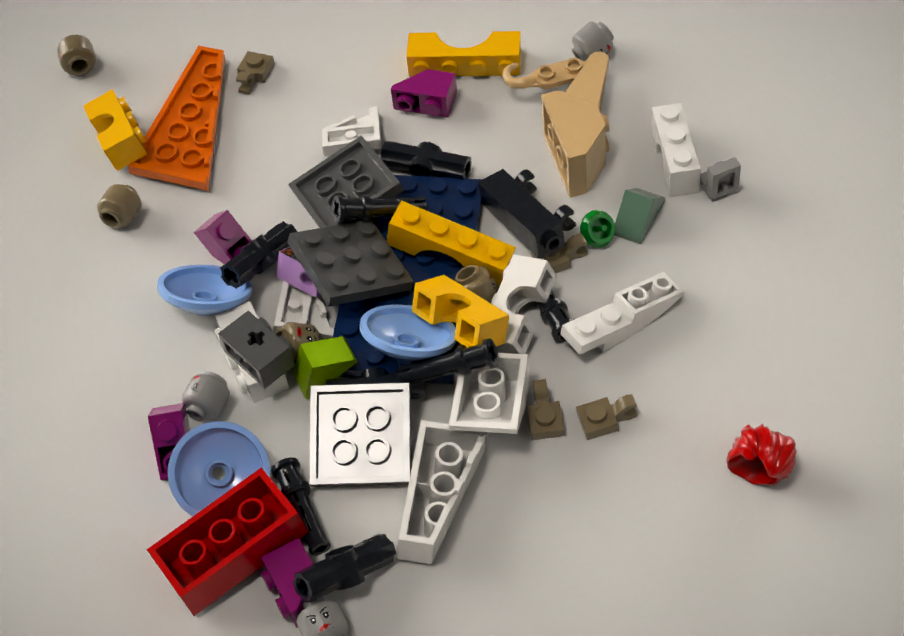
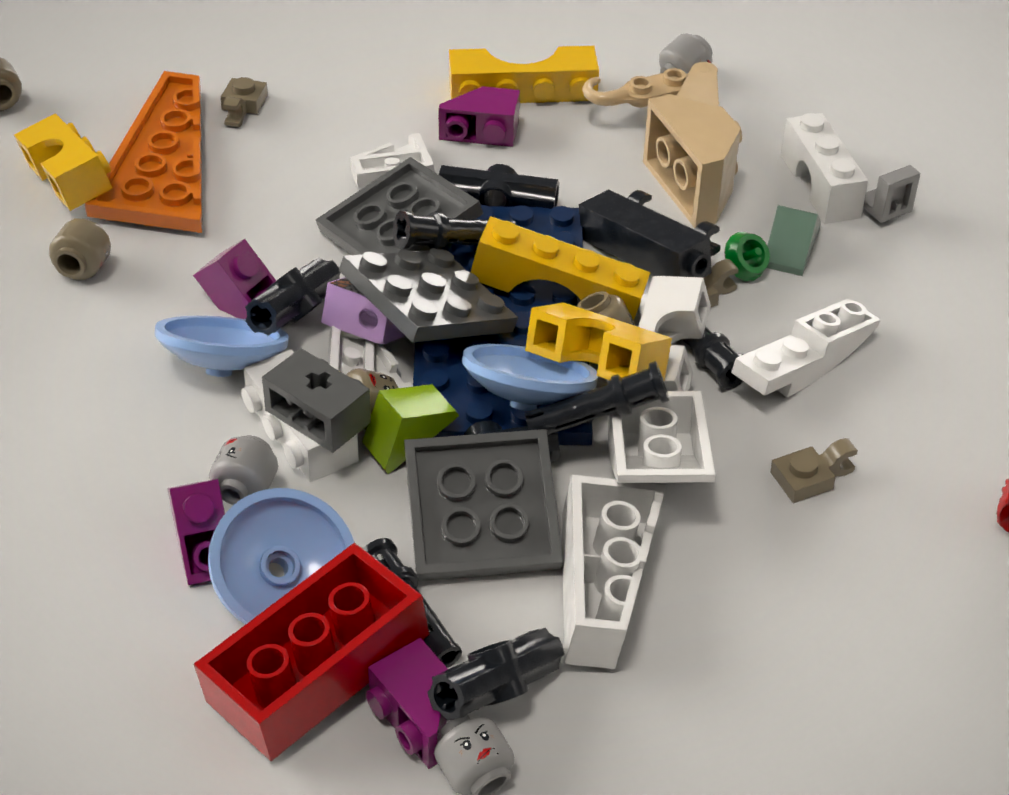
camera: 15 degrees left, 10 degrees down
(544, 416) = (734, 475): dark tan plate -> none

